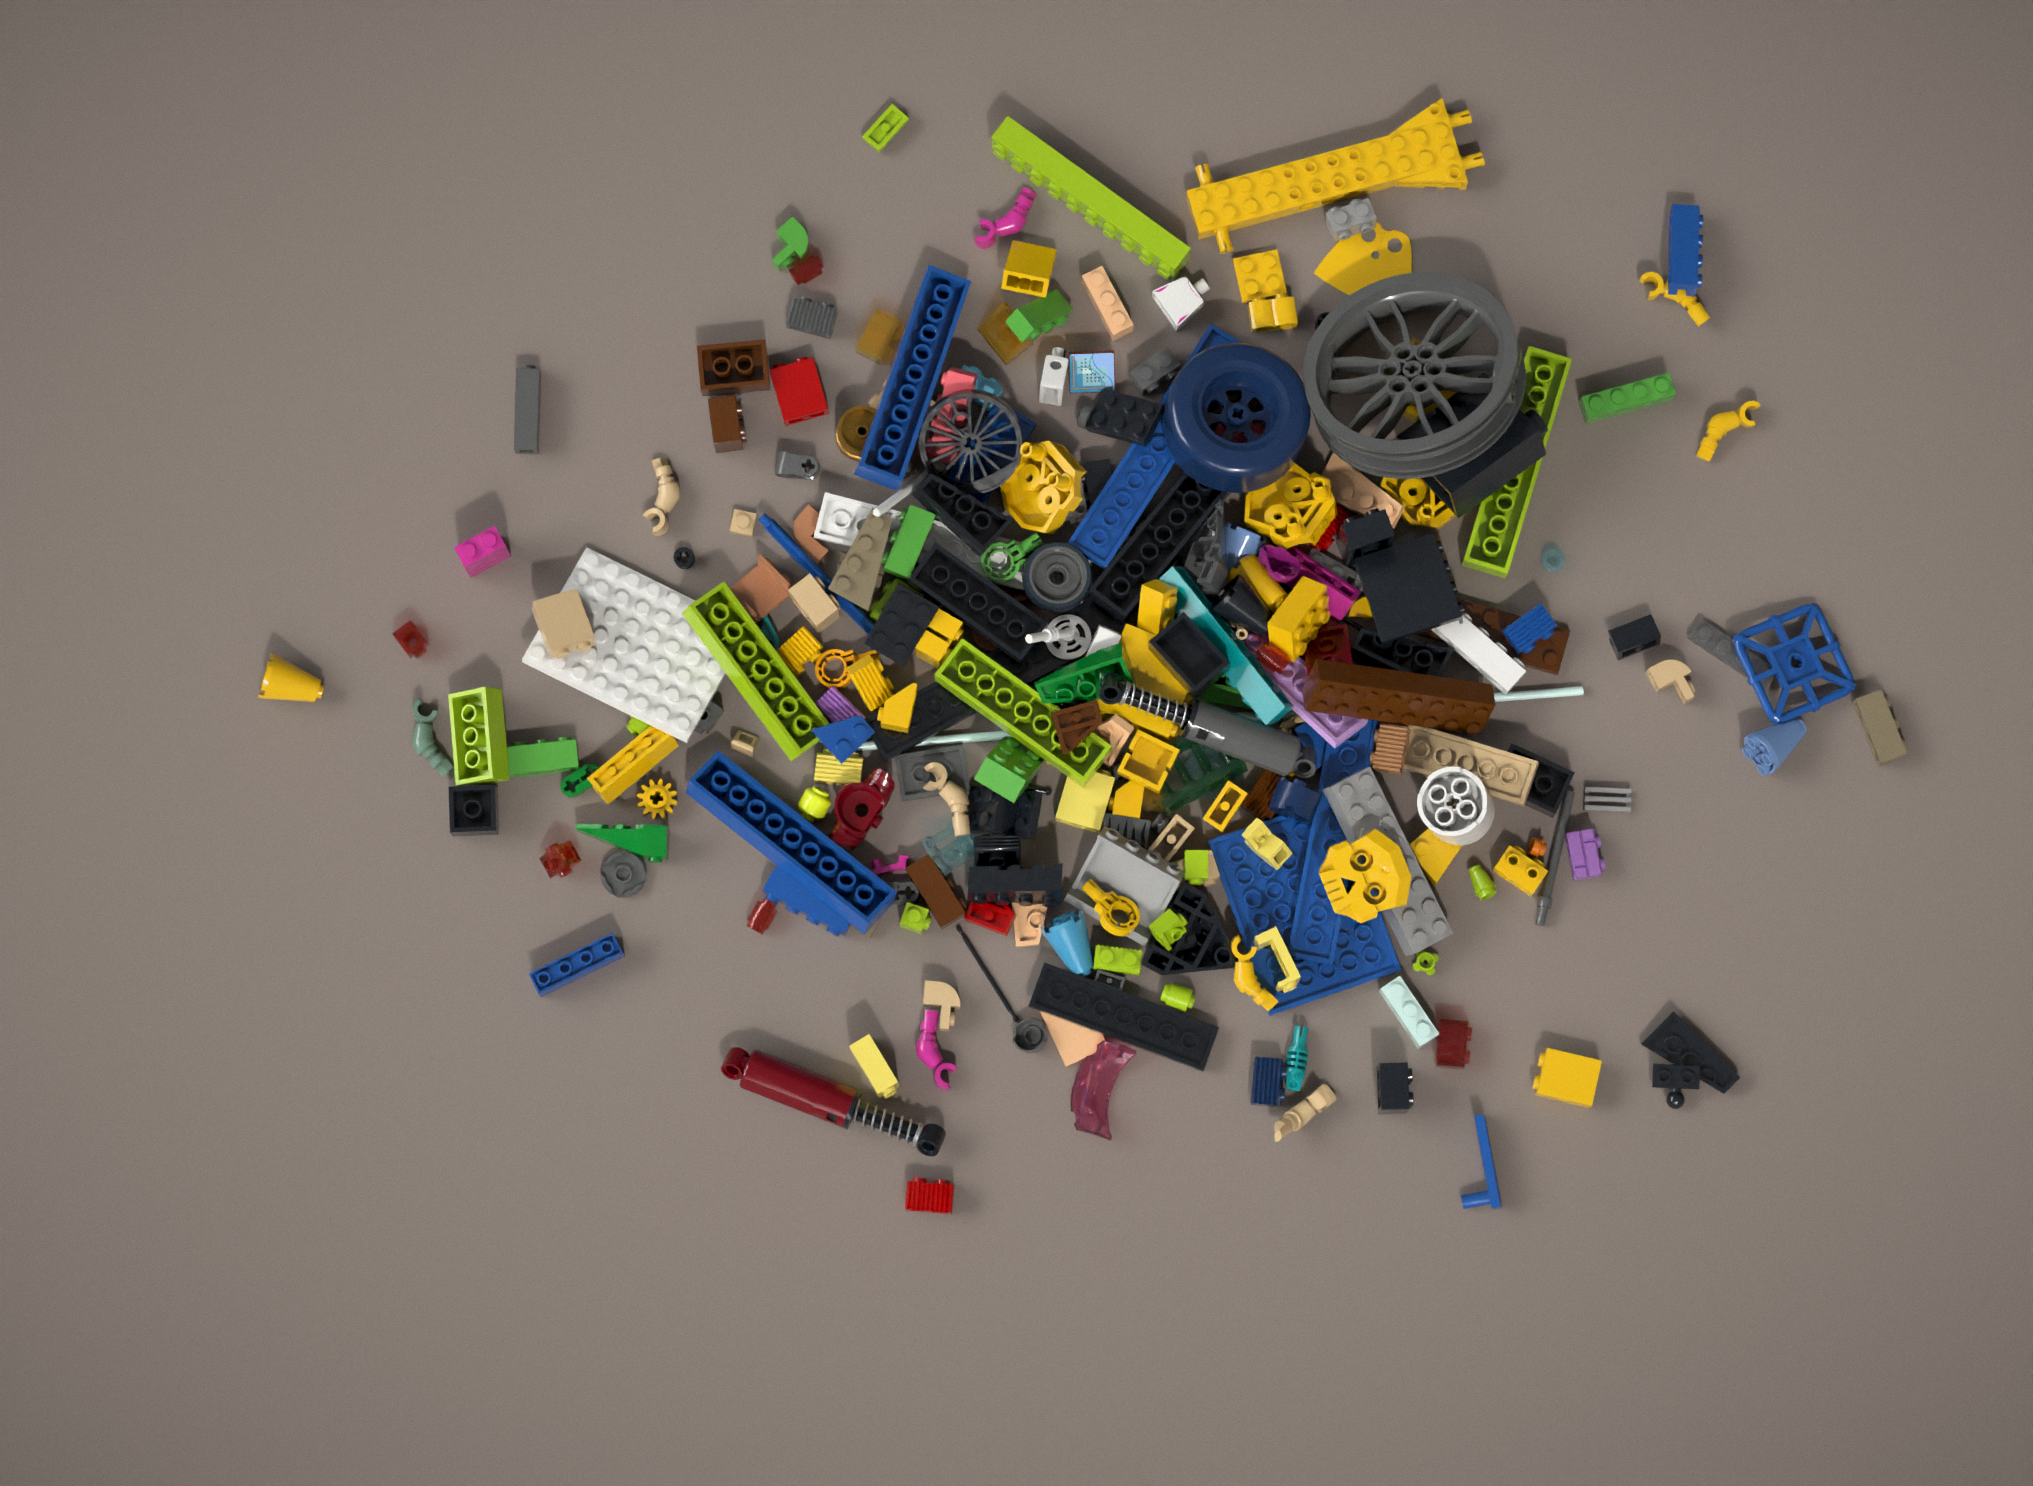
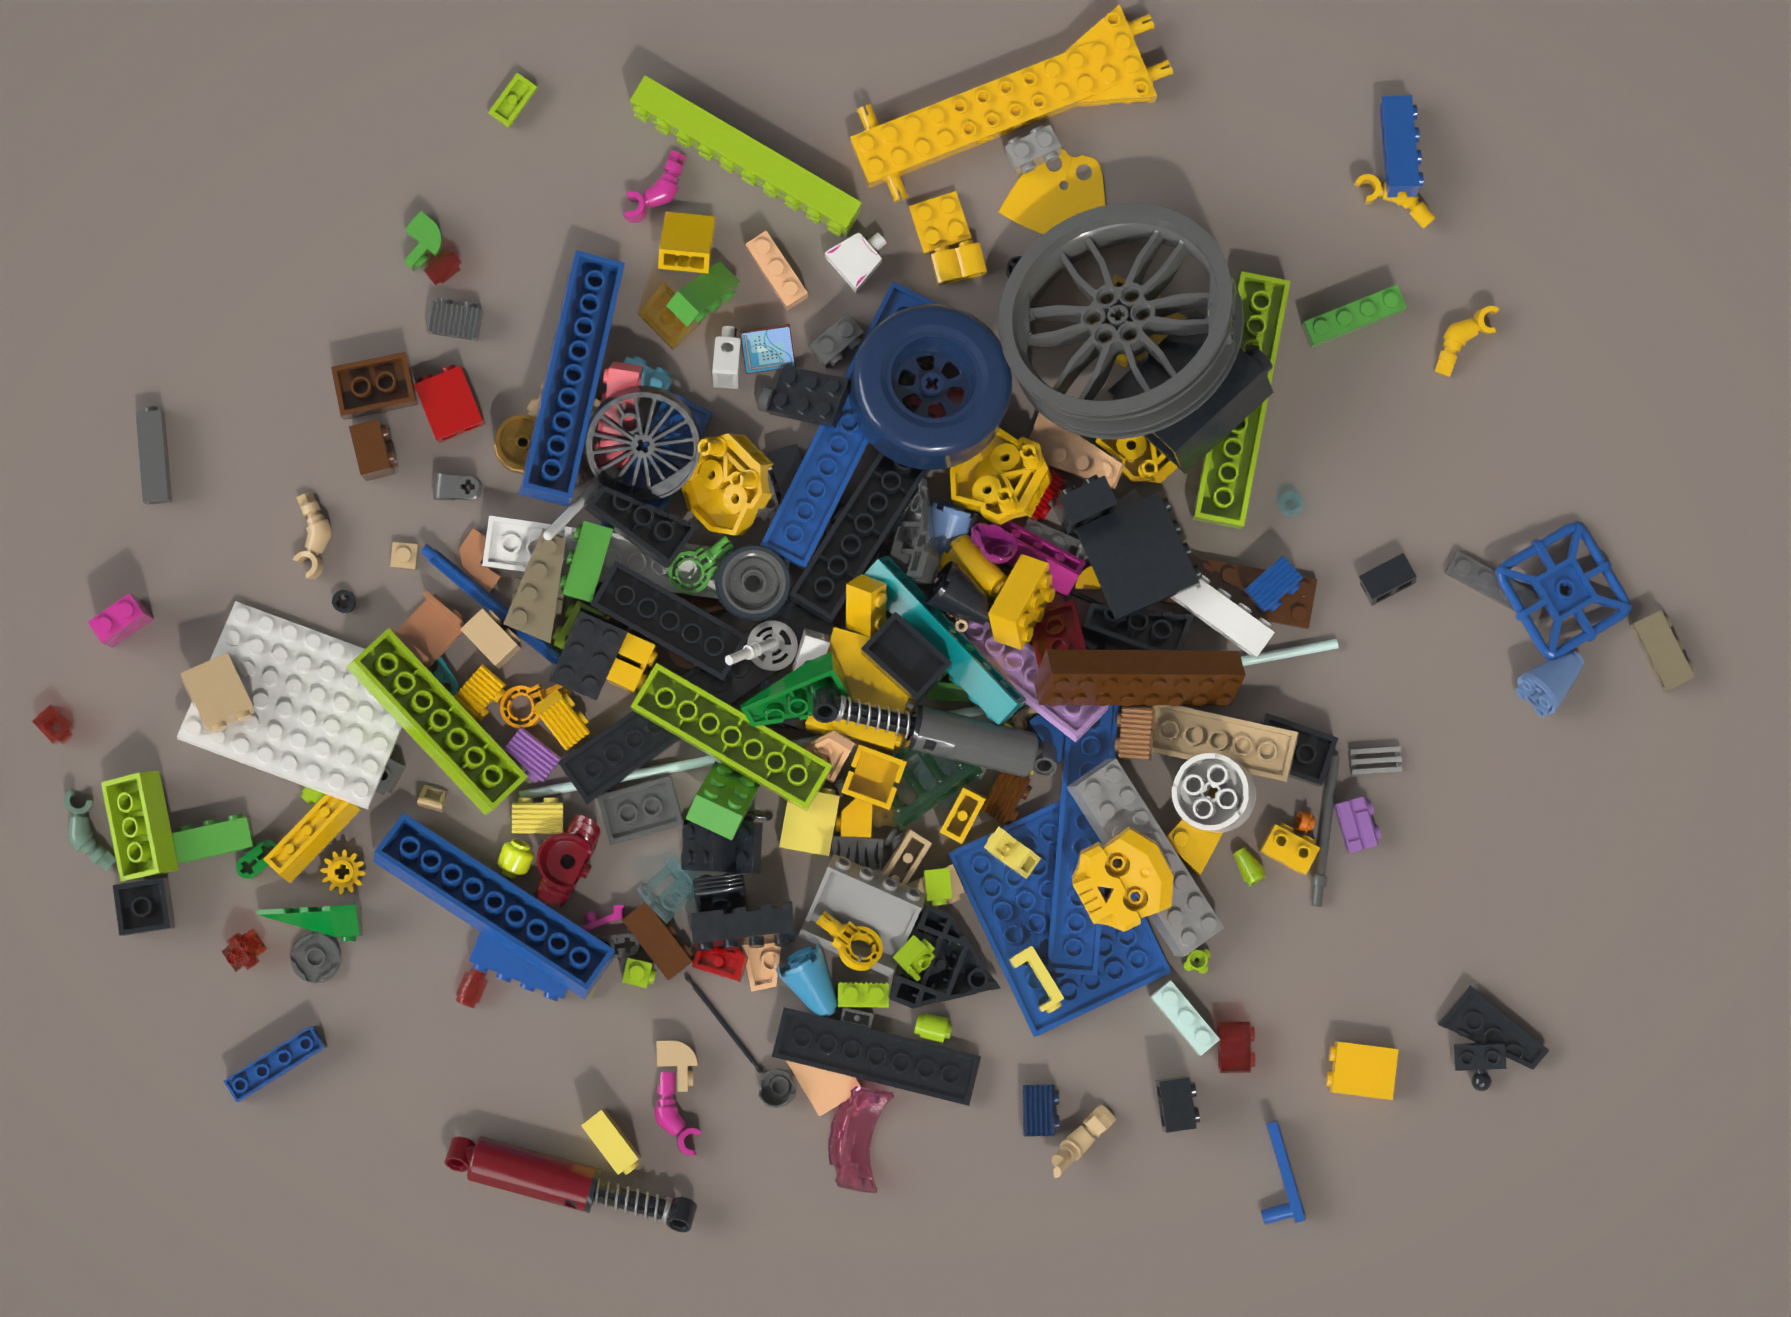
camera: 15 degrees left, 5 degrees up
(844, 736) = (539, 783): blue wing -> none
(879, 336) = (530, 334): clear yellow brick -> none
(898, 710) = (596, 747): yellow slope -> none
(929, 1196) = (686, 1275): red brick -> none
(954, 796) = (667, 835): tan piece -> none
(1076, 724) = (790, 747): reddish brown wing -> none
(1246, 979) = (1003, 1000): yellow piece -> none
(1273, 657) = (998, 648): clear red brick -> none
(1295, 800) = (1038, 801): dark blue brick -> none
(1297, 1060) = (1068, 1082): teal hinge -> none
(1669, 673) = (1430, 615): tan brick -> none

